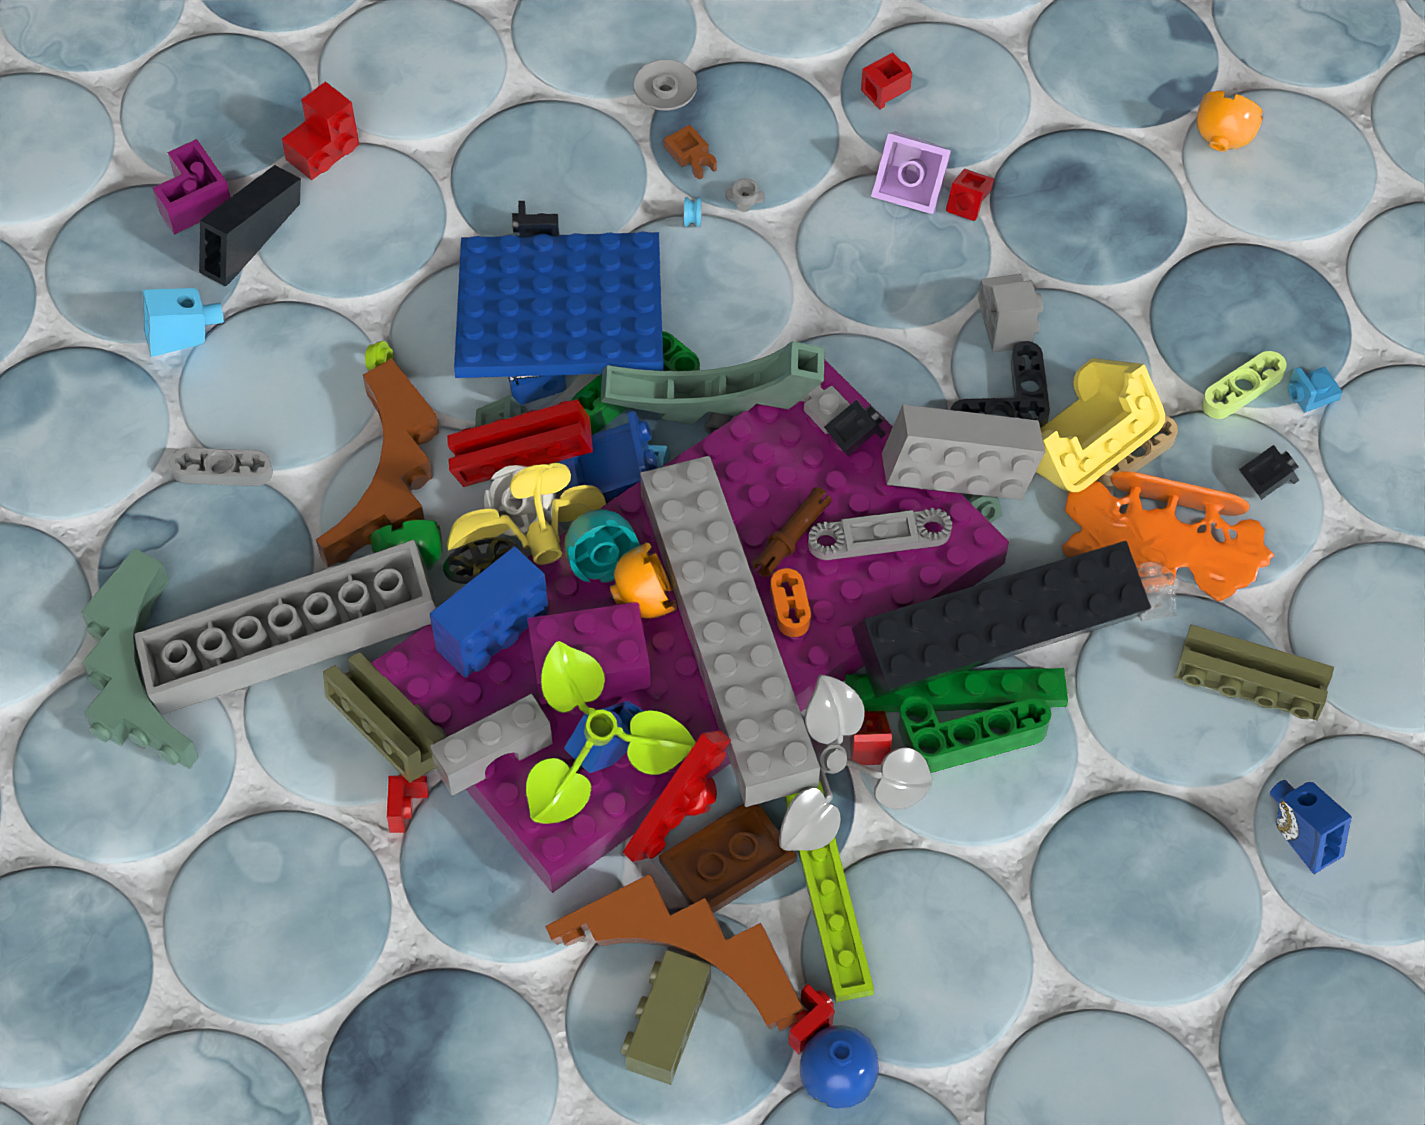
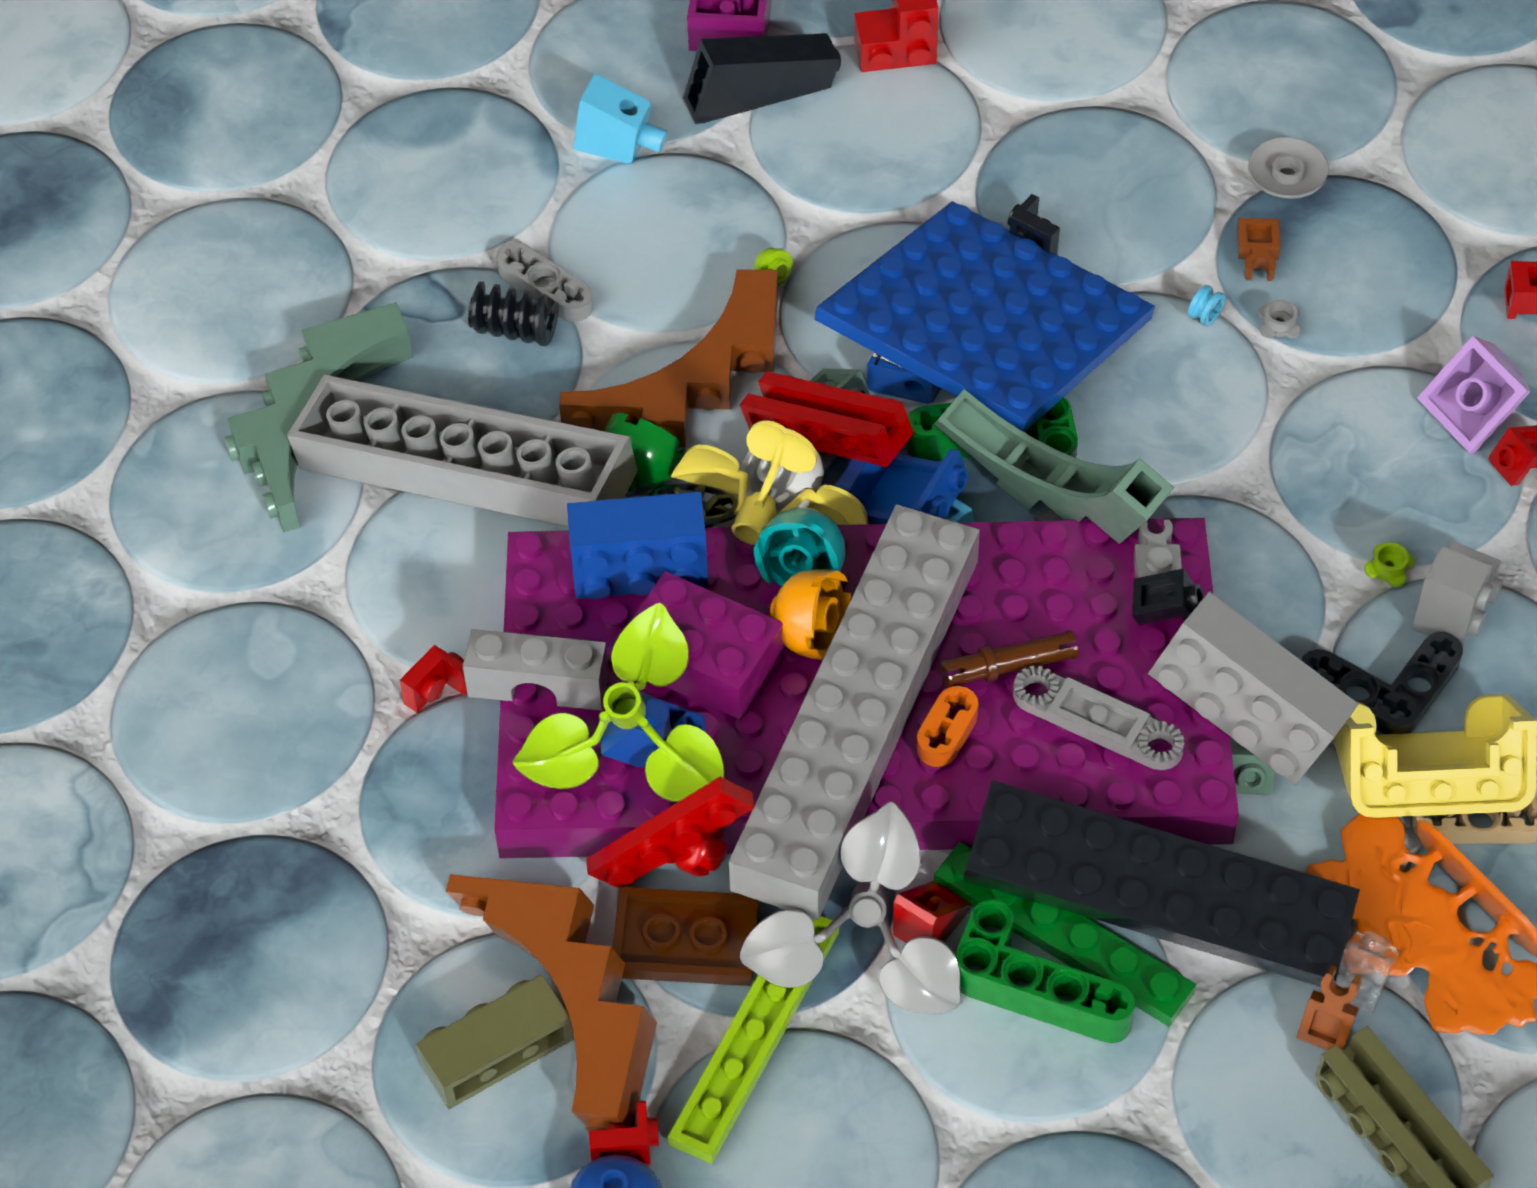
camera: 40 degrees right, 5 degrees down
(223, 504) = (512, 316): none -> black piece
(383, 716) = (477, 583): olive brick -> none
(945, 311) = (1393, 555): none -> lime plate
(1162, 634) = (1328, 1014): none -> dark orange plate

